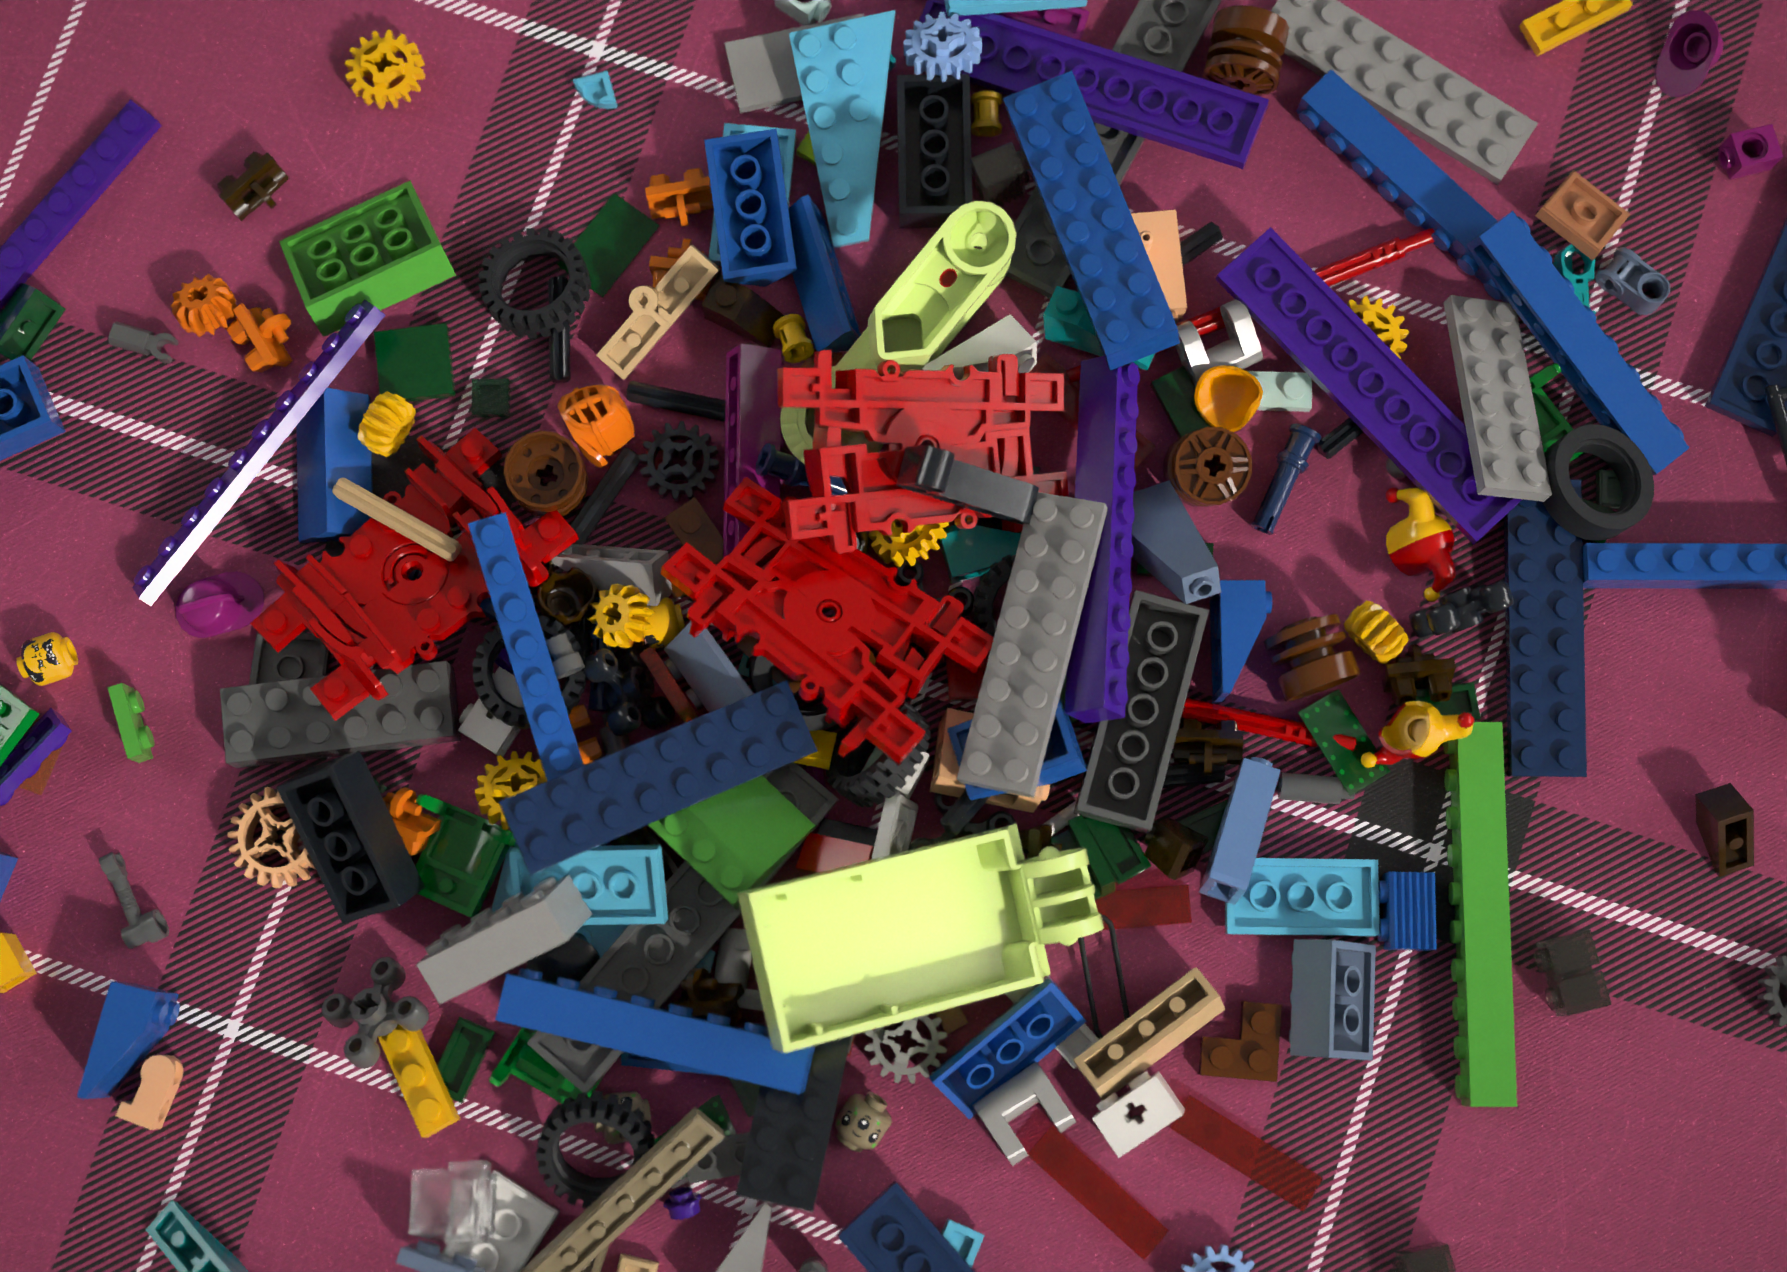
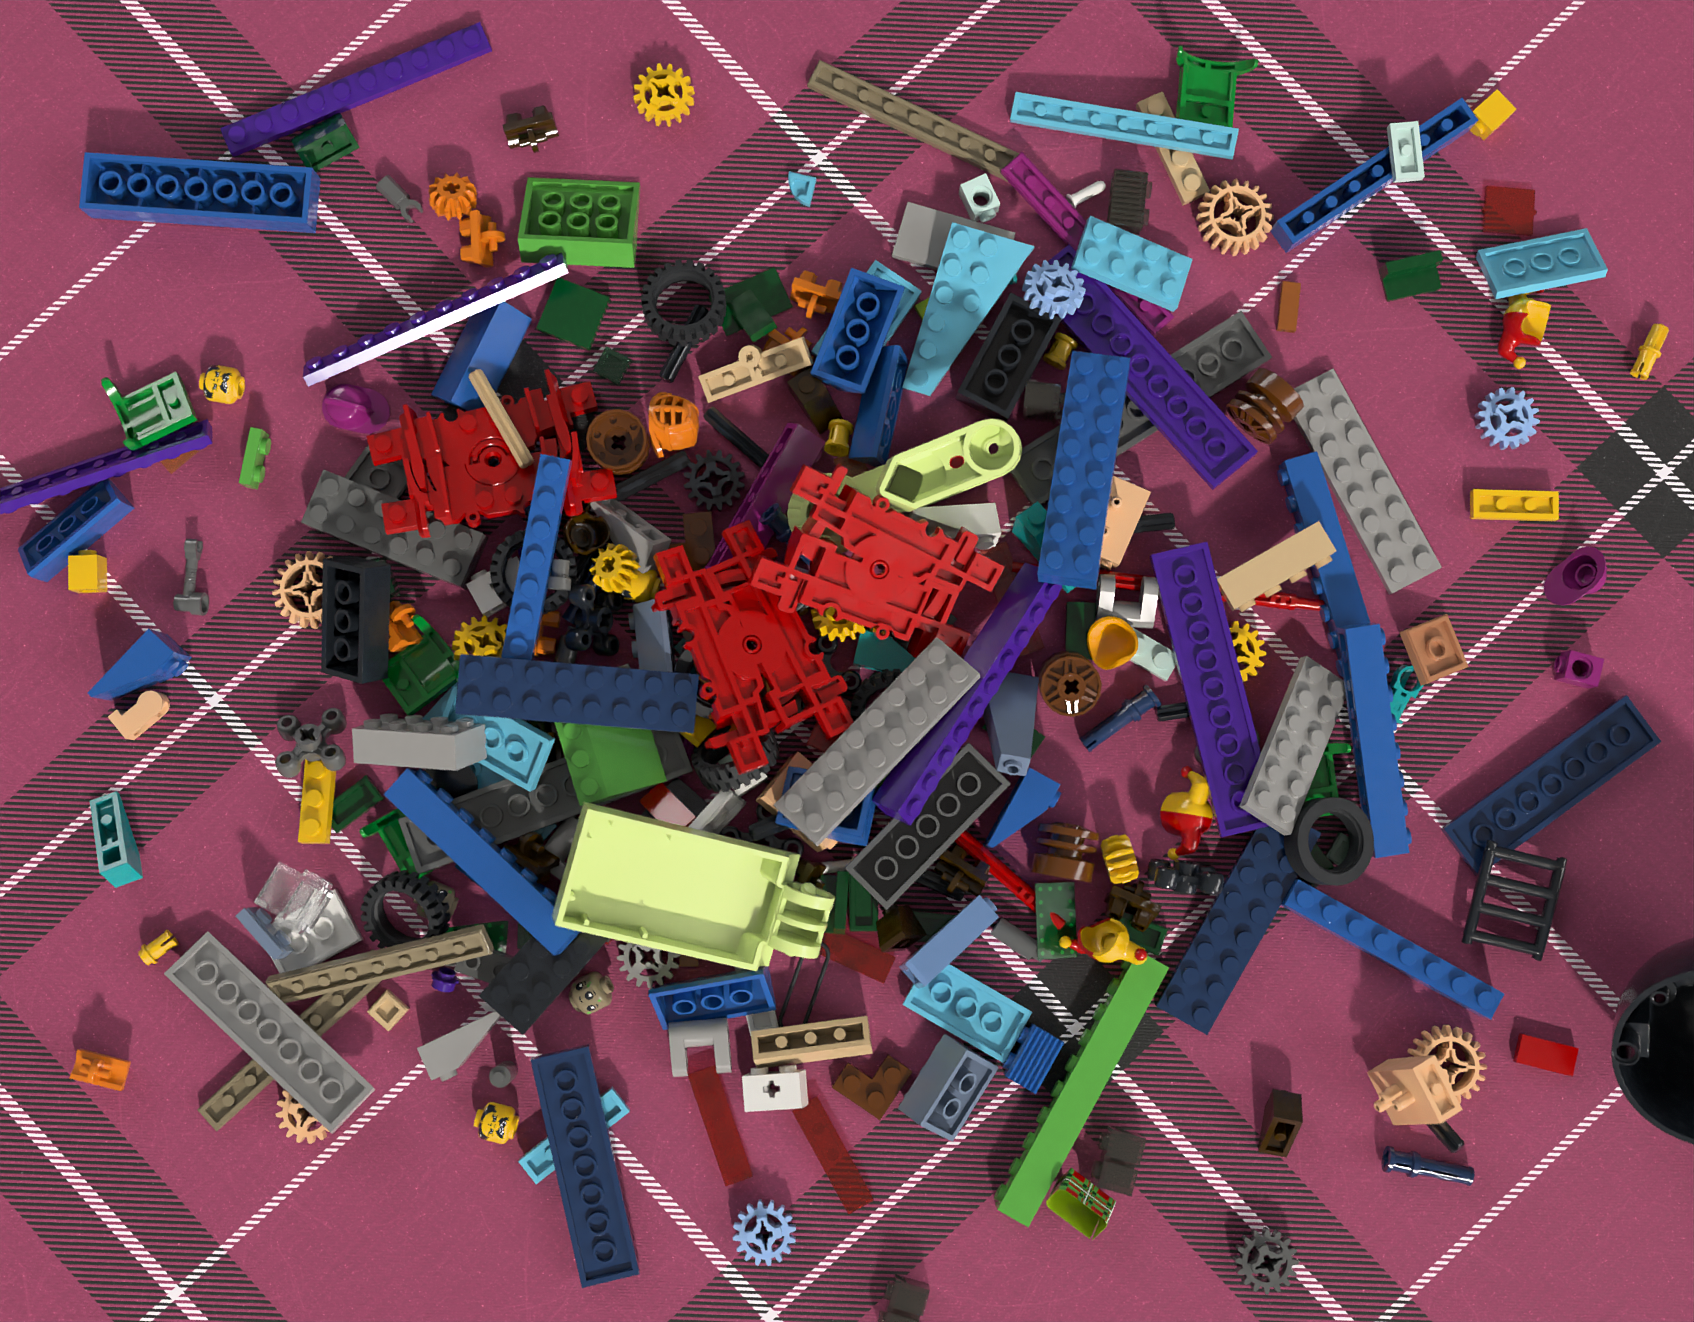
camera: 25 degrees right, 5 degrees up
(386, 424) = (530, 347): yellow gear -> none
(619, 256) = (751, 315): none -> dark green tile
(669, 685) = (621, 635): clear red tile -> none
(940, 476) = (892, 610): black beam -> none
(1361, 213) = (1276, 566): none -> tan brick
(1562, 1058) = (1081, 1203): none -> piece
(1630, 282) = (1440, 713): sand blue piece -> none

